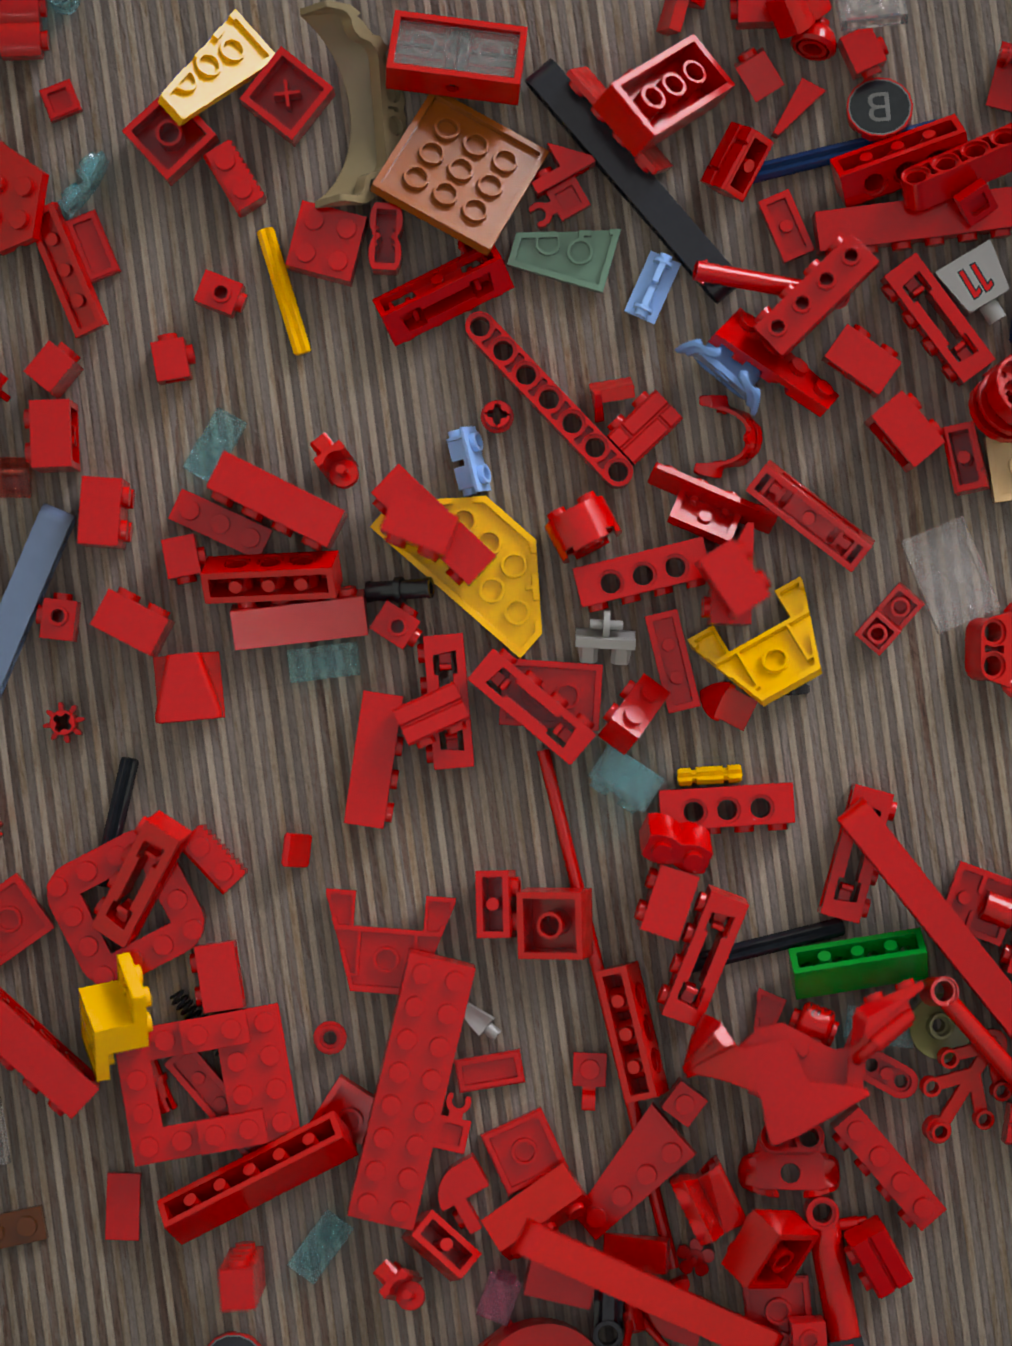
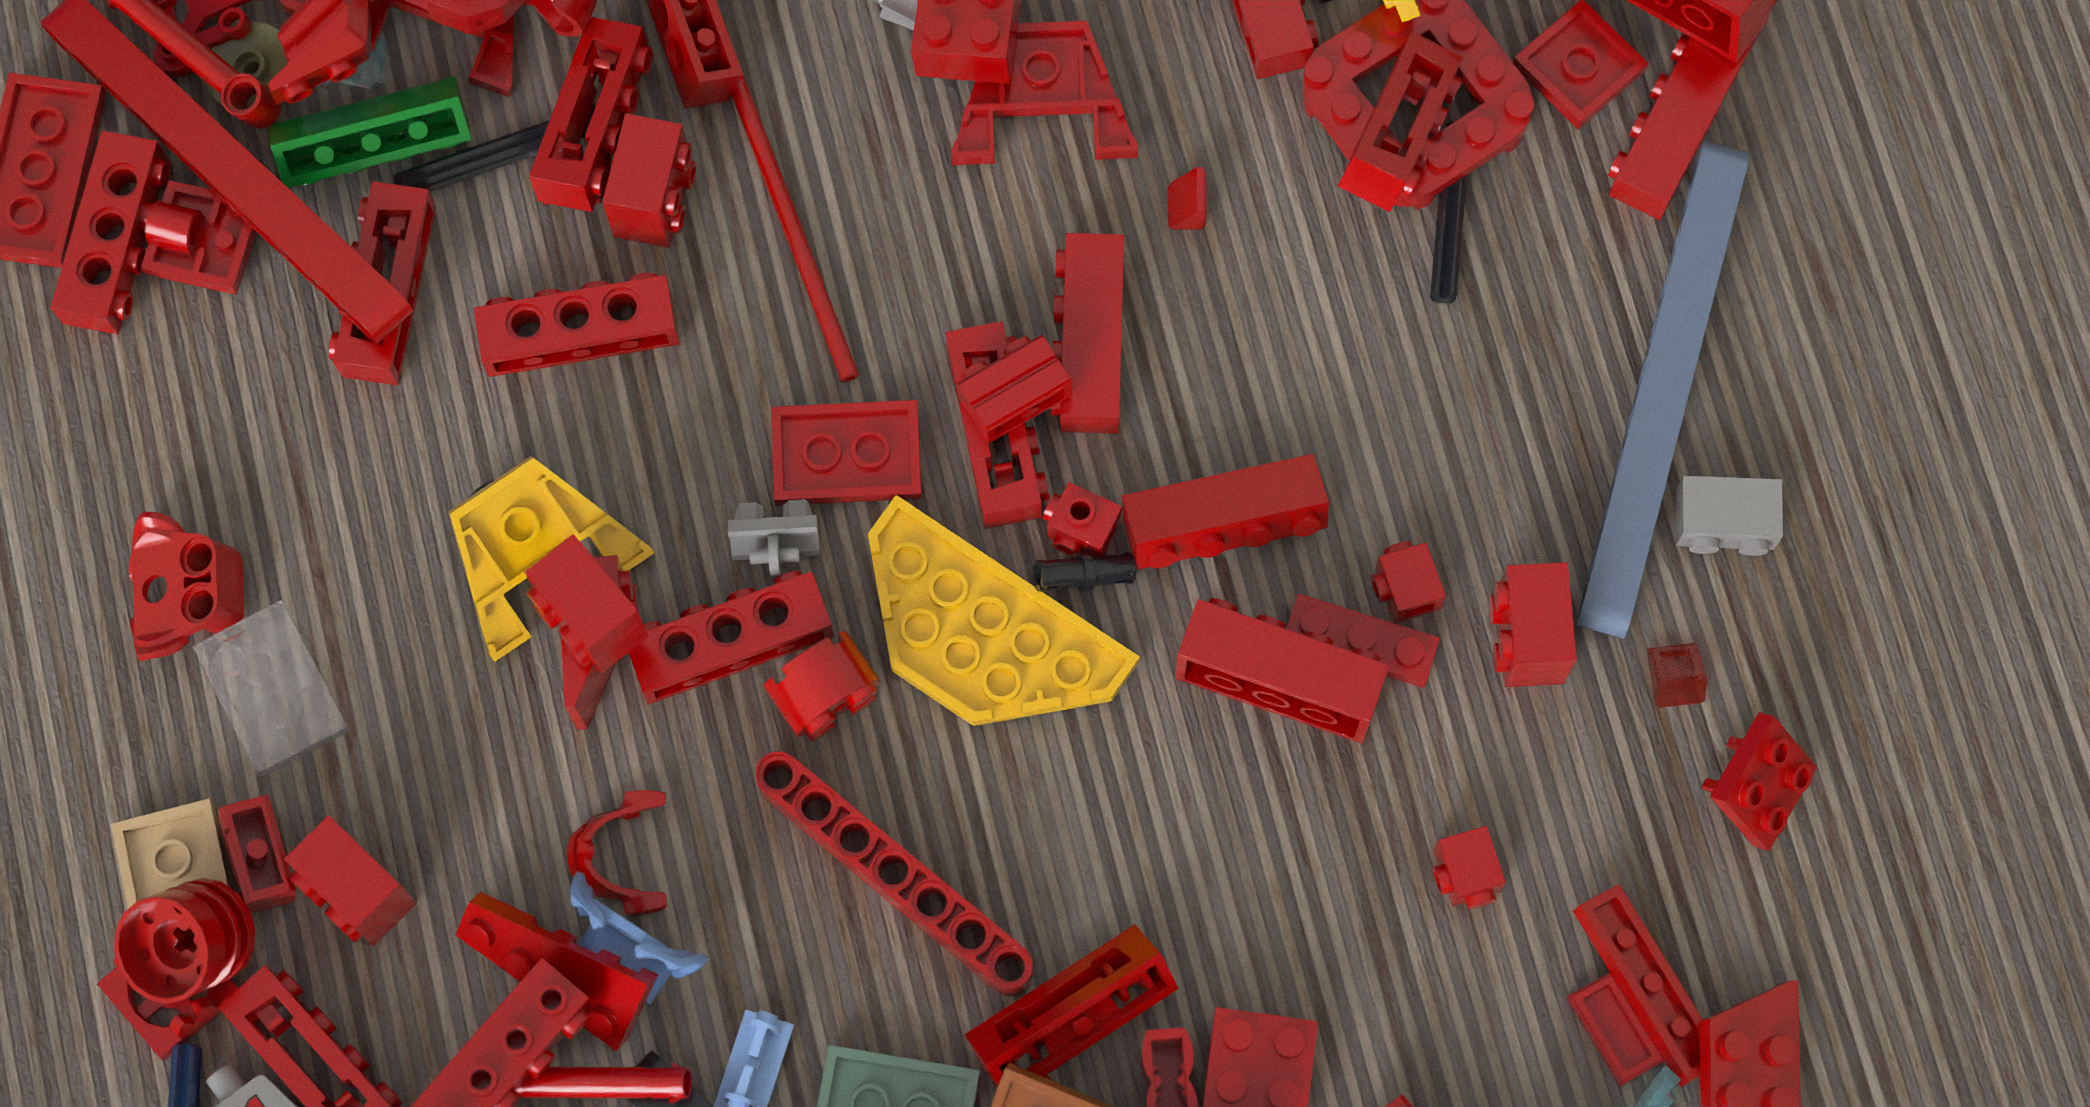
camera: 175 degrees right, 15 degrees down
(53, 435) = (1628, 726): red brick -> none
(55, 368) = (1643, 826): red brick -> none
(55, 724) = (1548, 319): red gear -> none
(59, 617) = (1576, 476): red brick -> none
(132, 622) = (1467, 475): red brick -> none
(188, 687) = (1372, 396): red piece -> none
(214, 859) = (1301, 172): red brick -> none
(219, 436) = (1385, 753): clear light blue slope -> none
(221, 294) = (1409, 974): red brick -> none
(271, 577) = (1274, 560): red brick -> none
(283, 291) = (1315, 994): yellow axle -> none
(323, 662) = (1180, 459): clear light blue slope -> none
(335, 462) = (1201, 737): red hips -> none
(420, 526) = (1061, 633): red brick -> none
(466, 554) = (1044, 660): red brick -> none
(467, 445) = (1007, 794): light blue hinge -> none
(496, 903) = (892, 153): red brick -> none
(505, 423) = (983, 849): red bush -> none
(554, 923) = (806, 135): red brick -> none
(574, 741) = (936, 465): red brick -> none
(609, 391) = (801, 896): red tile -> none
(626, 779) = (726, 347): clear light blue brick -> none
(634, 713) = (721, 429): red brick -> none
(644, 426) = (747, 850): red brick -> none
(672, 660) = (673, 519): red plate -> none
(675, 843) = (642, 252): red brick -> none
(706, 508) = (640, 738): red bracket -> none
(709, 775) = (605, 369): yellow axle -> none
(727, 704) = (589, 465): red tile -> none
(810, 515) = (484, 744): red brick -> none
(815, 1022) = (427, 47): red head -> none
(862, 359) = (423, 988): red brick -> none
(889, 618) = (359, 618): red slope -> none

